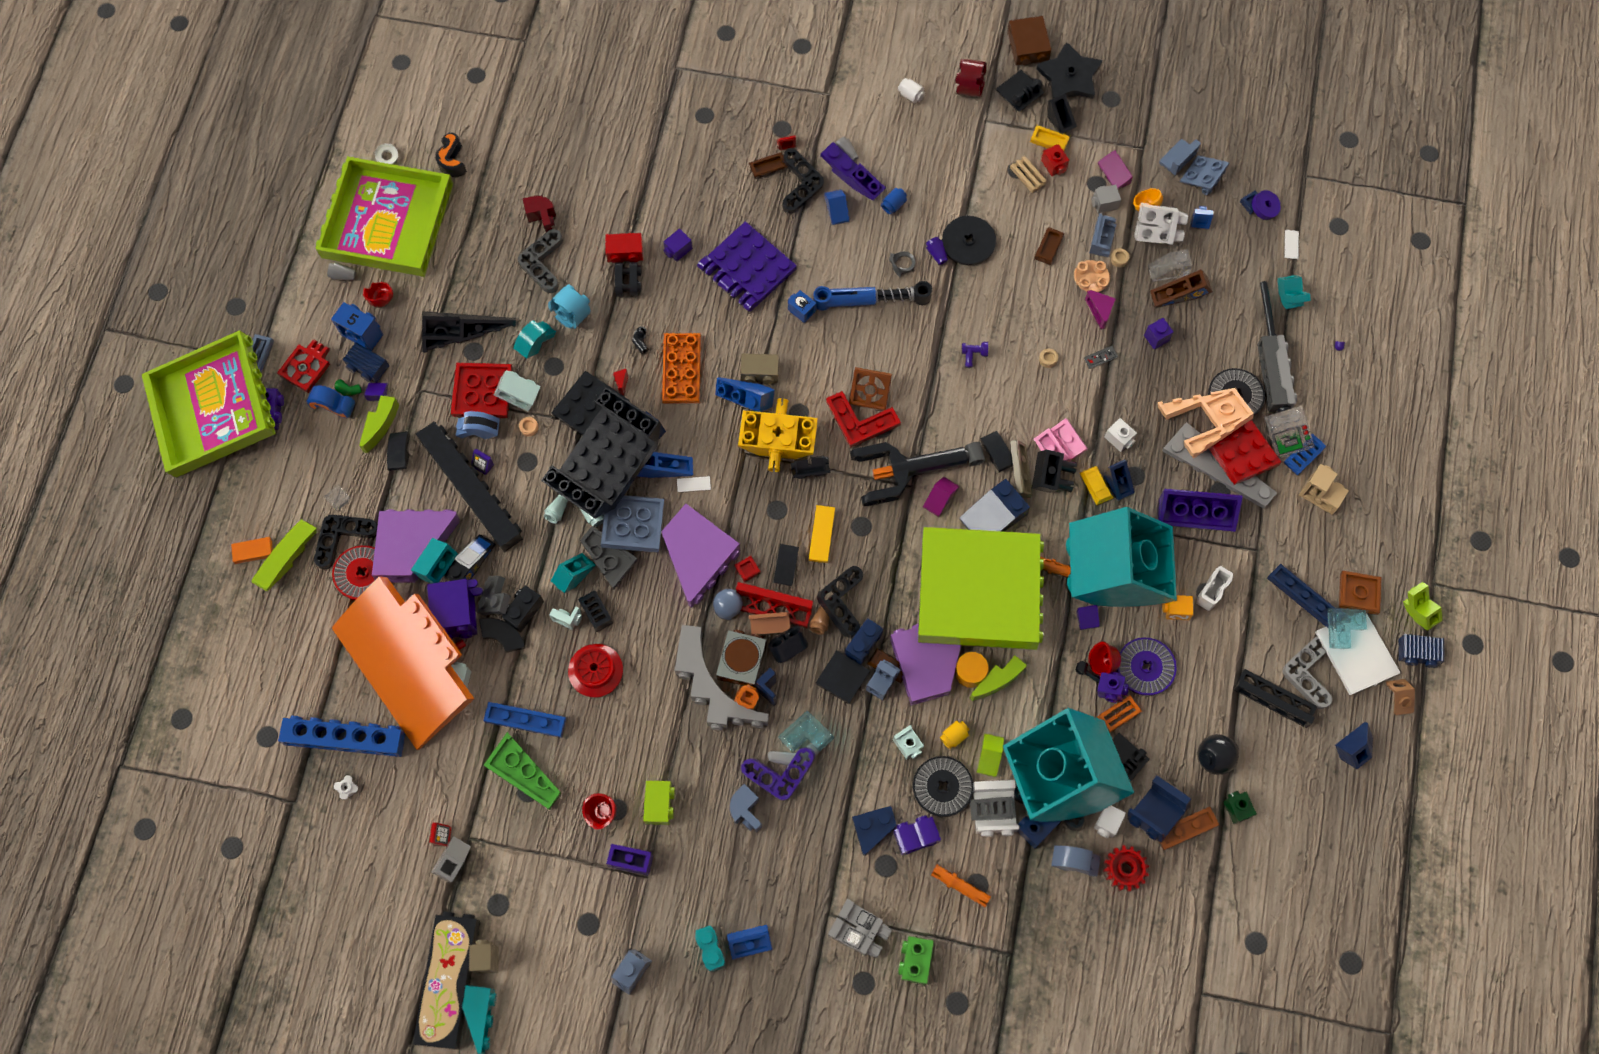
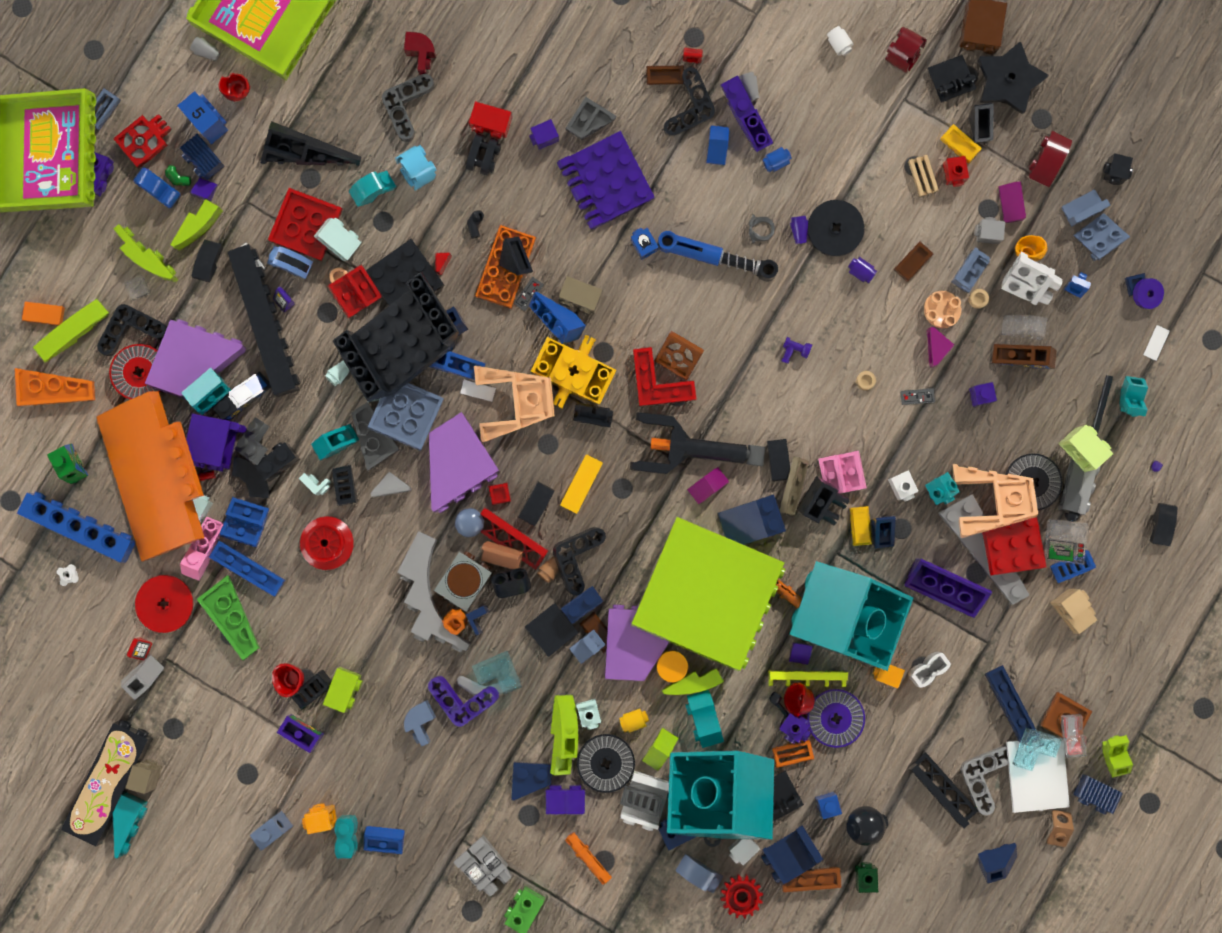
camera: 20 degrees right, 15 degrees up
(275, 617) = (44, 389): none -> orange wing
(314, 676) = (65, 462): none -> green torso
(340, 468) = (149, 260): none -> lime slope
(438, 775) = (155, 616): none -> red piece
(471, 724) = (198, 554): none -> bright pink slope
(508, 677) = (244, 522): none -> blue slope
(547, 432) = (354, 291): none -> red slope
(625, 805) = (321, 681): none -> black slope
(640, 596) = (390, 485): none -> light grey slope
(677, 937) = (319, 818): none -> light orange brick
(686, 353) = (514, 257): none -> black slope
(710, 385) = (526, 295): none -> dark grey sticker
(713, 220) = (589, 119): none -> dark grey wing
(749, 472) = (531, 400): none -> light nougat wing
(895, 772) = (565, 729): none -> lime slope
(1006, 265) = (862, 270): none -> dark purple brick
(1020, 706) = (705, 719): none -> teal brick
(1104, 634) = (807, 676): none -> neon yellow hinge
(1132, 124) = (1050, 159): none -> dark red brick
(1157, 425) = (942, 489): none -> teal brick
(1173, 749) = (828, 805): none -> blue brick
(1194, 115) = (1118, 169): none -> black brick
(1271, 341) = (1086, 448): none -> yellowish green brick
(1370, 390) = (1165, 523): none -> black slope
(1375, 605) = (1073, 736): none -> clear slope

